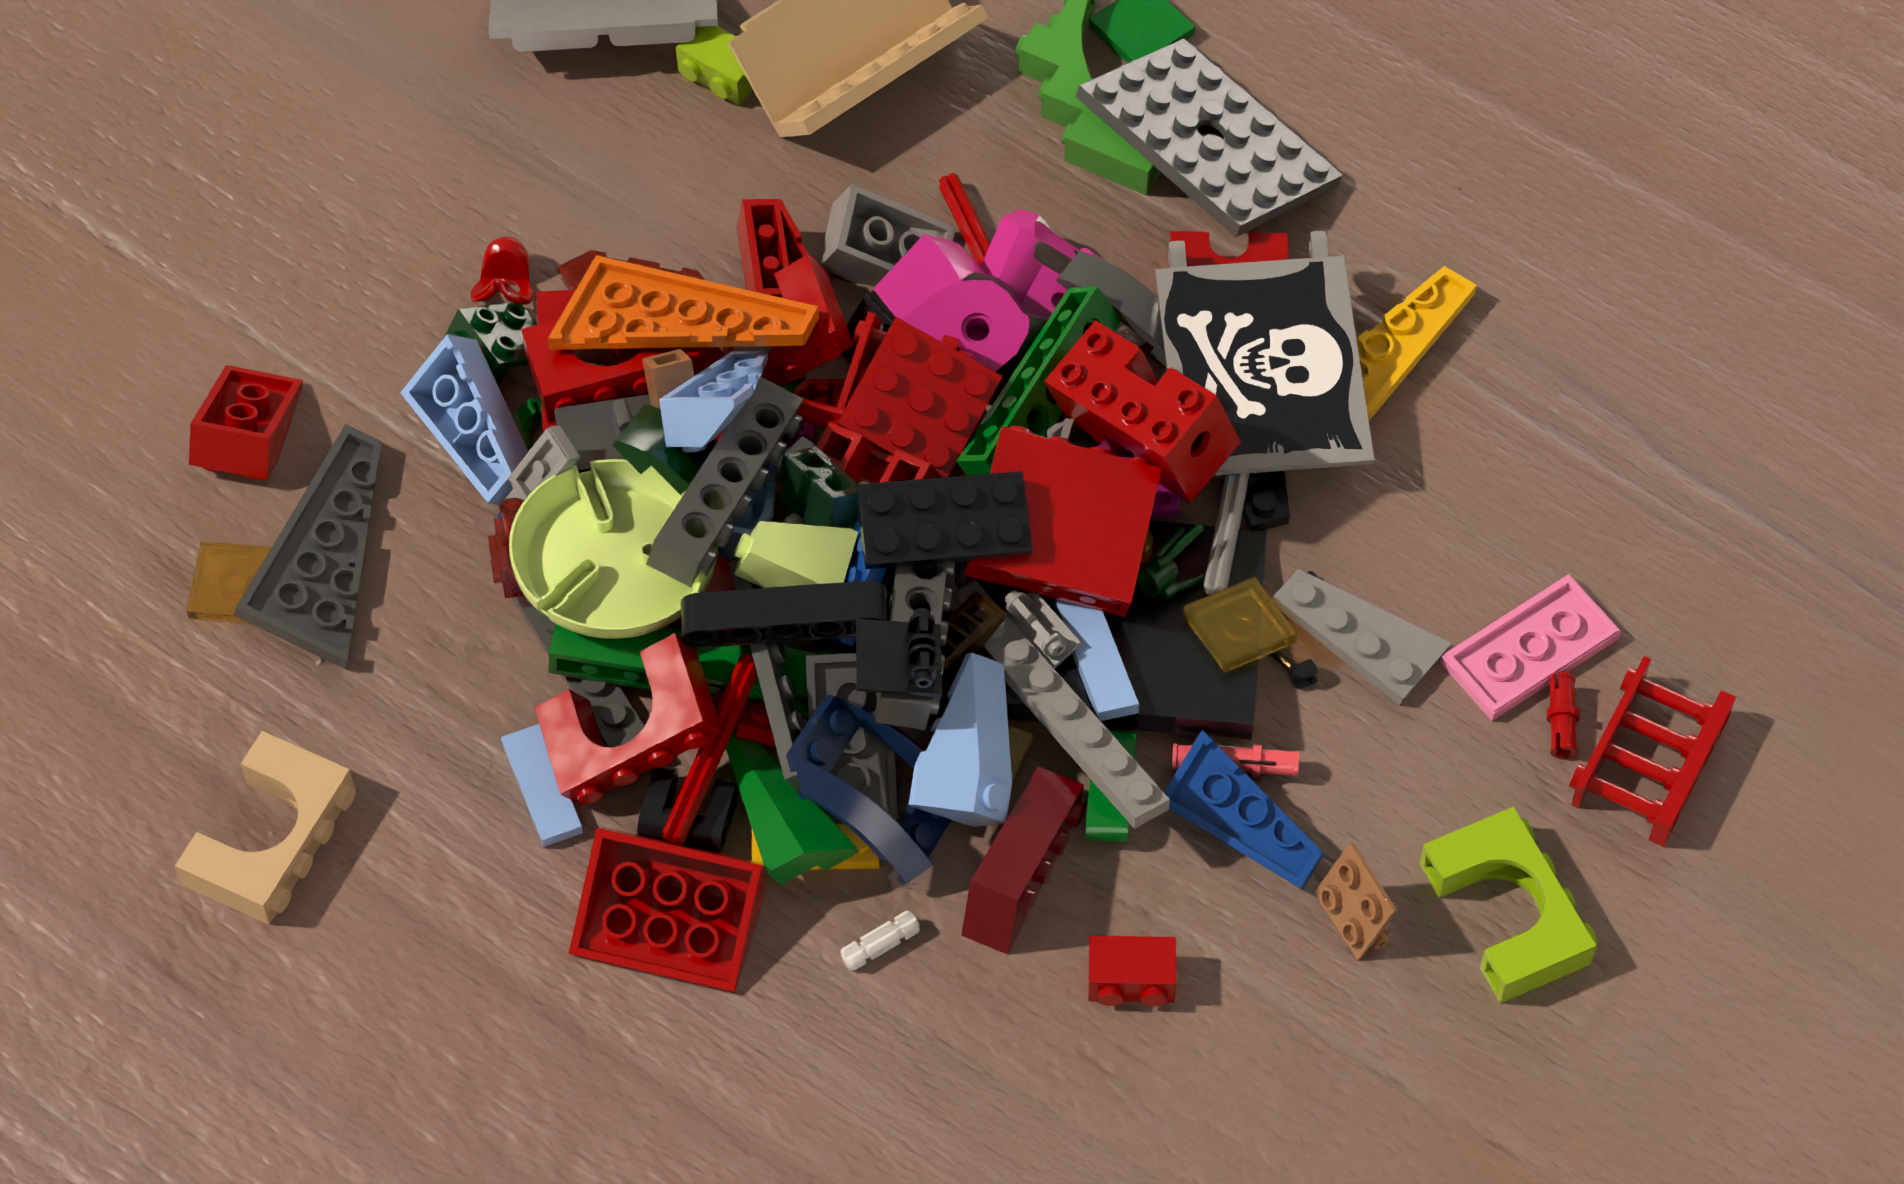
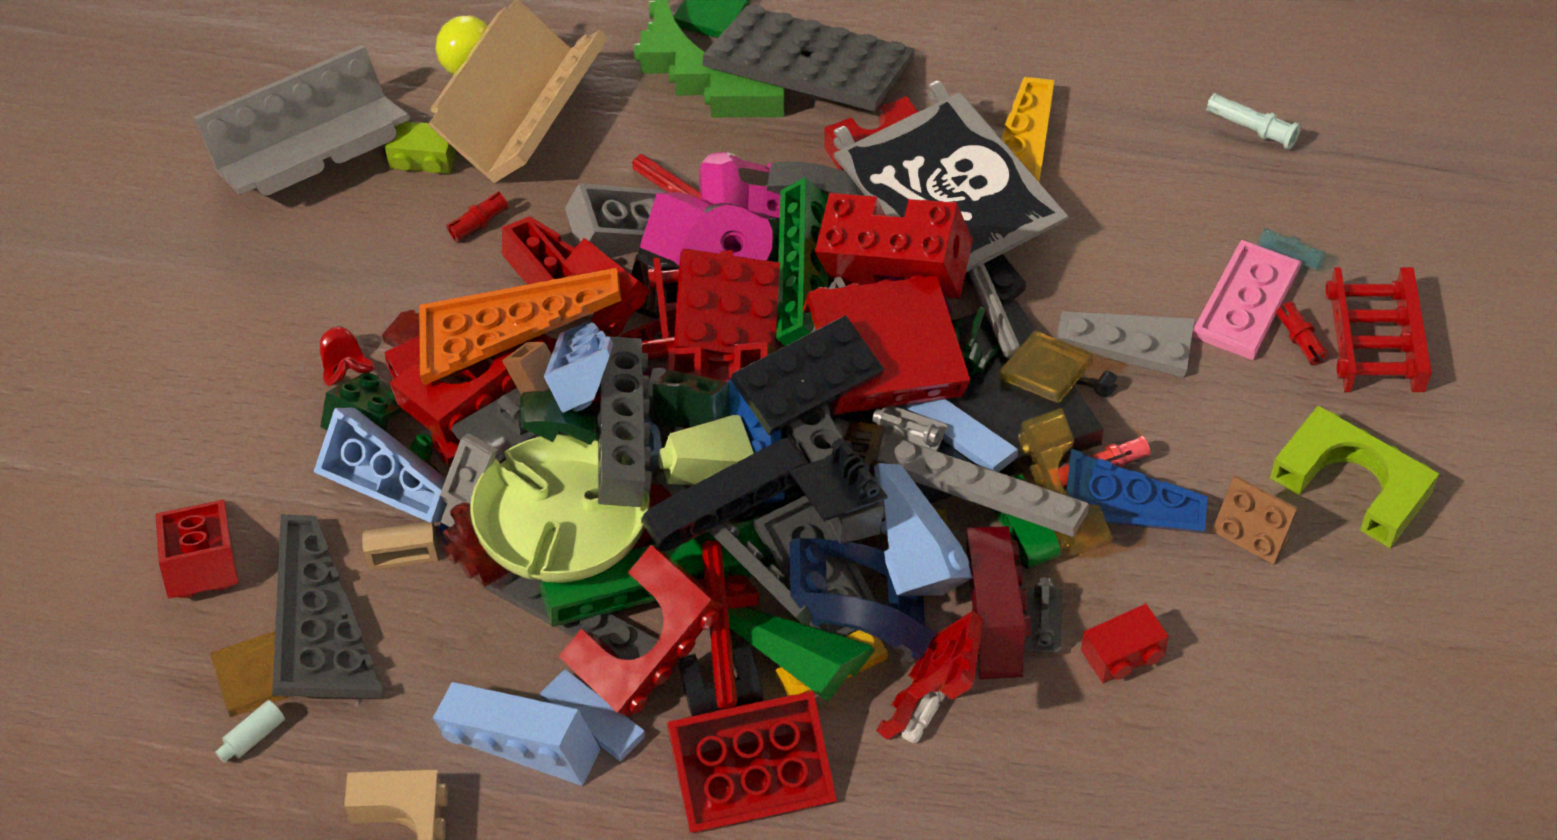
camera: 25 degrees left, 5 degrees down
(197, 643) = (250, 731): none -> light aqua cylinder
(449, 512) = (400, 545): none -> tan brick
(454, 767) = (519, 730): none -> light blue wedge
(735, 171) = (477, 216): none -> red pin
(905, 905) = (945, 665): none -> red wing
(1066, 902) = (1045, 613): none -> dark grey hinge
(1173, 711) = (1048, 440): none -> clear yellow arch
(1604, 593) = (1311, 257): none -> clear light blue pin
(1691, 447) = (1265, 124): none -> light aqua pin

